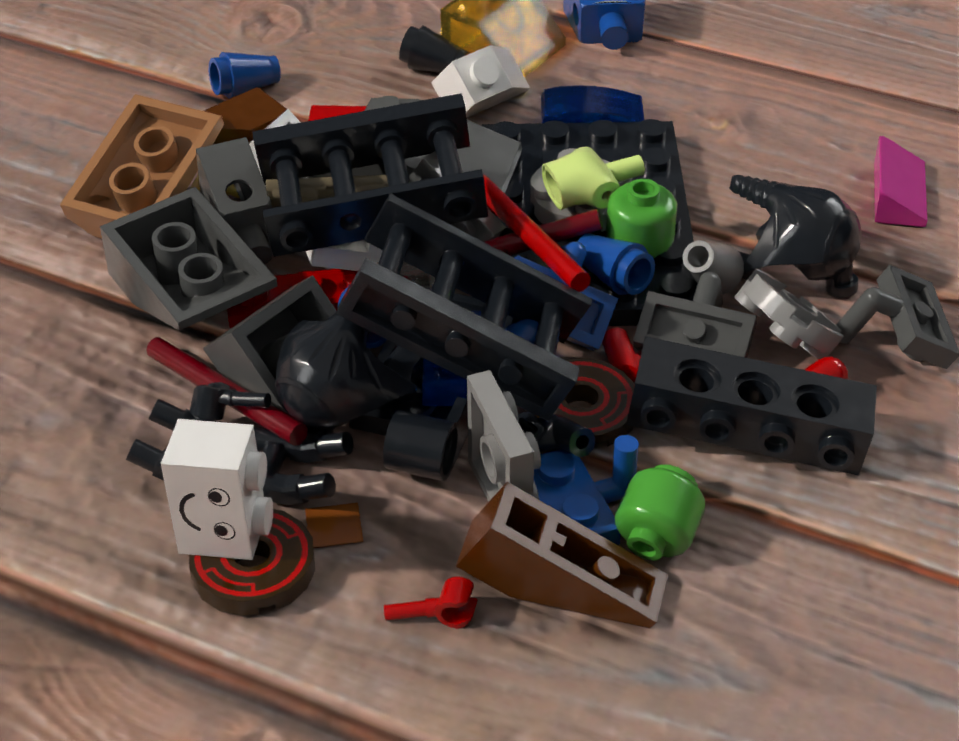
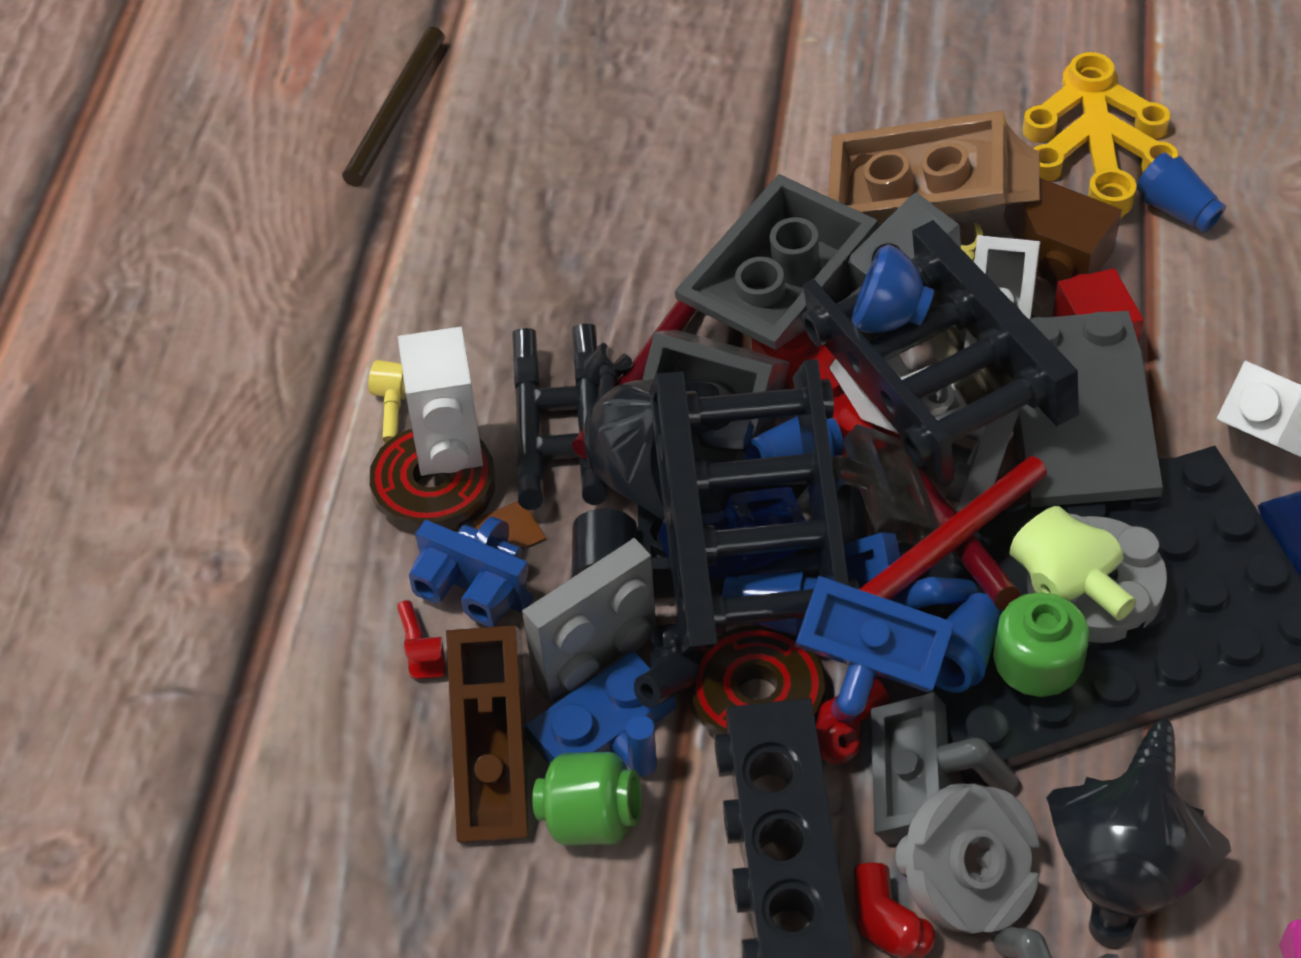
camera: 75 degrees right, 10 degrees up
(97, 84) = (1094, 82): none -> yellow plant
(119, 562) = (388, 382): none -> light yellow hand
(316, 164) = (891, 294): none -> blue brick
(379, 536) = (475, 561): none -> blue hips
(620, 278) = (874, 640): none -> blue plate
(717, 258) = (1031, 752): light grey cone -> none

